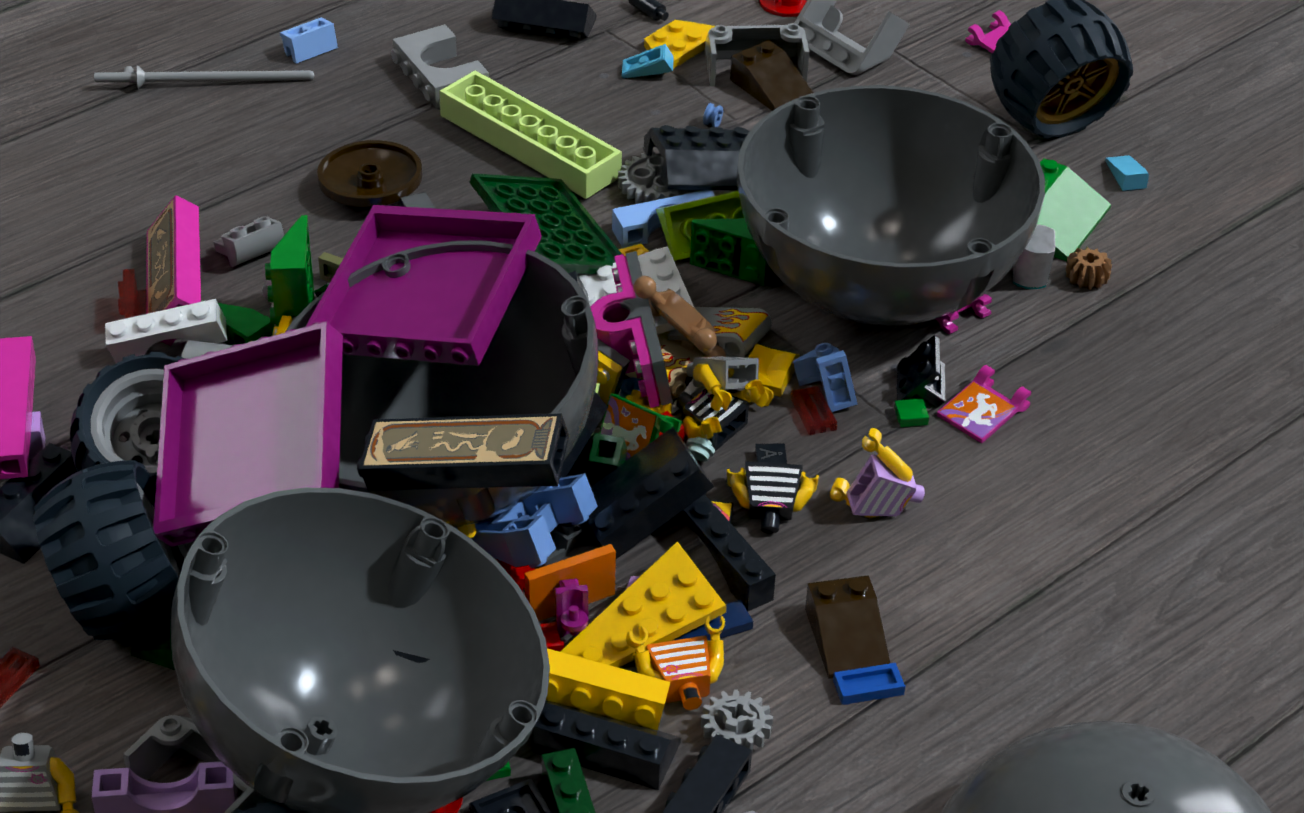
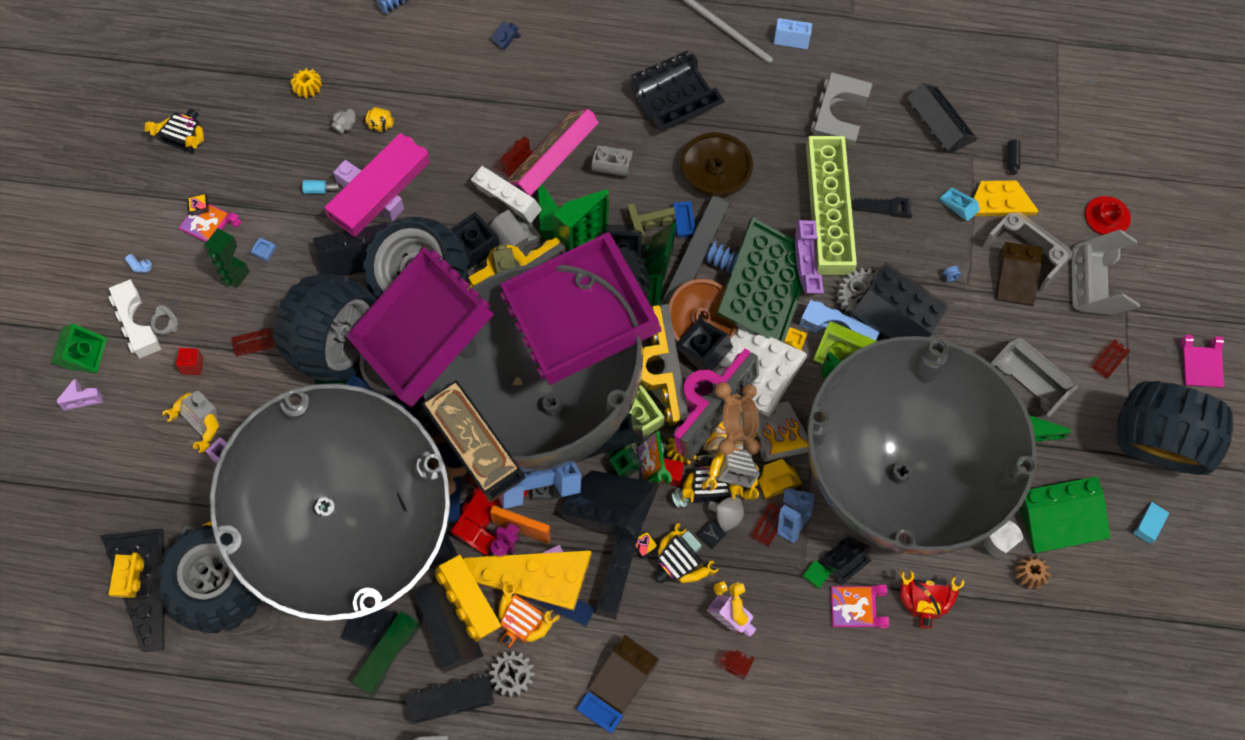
camera: 45 degrees right, 25 degrees up
(242, 152) = (673, 92): none -> black slope
(542, 162) = (806, 257): none -> medium lavender slope
(588, 107) = (885, 206): none -> black piece
(763, 419) = (728, 512): none -> light grey piece
(930, 78) = (1119, 348): none -> clear red tile
(942, 532) = (736, 663): none -> clear red brick
(1032, 350) = (928, 598): none -> torso

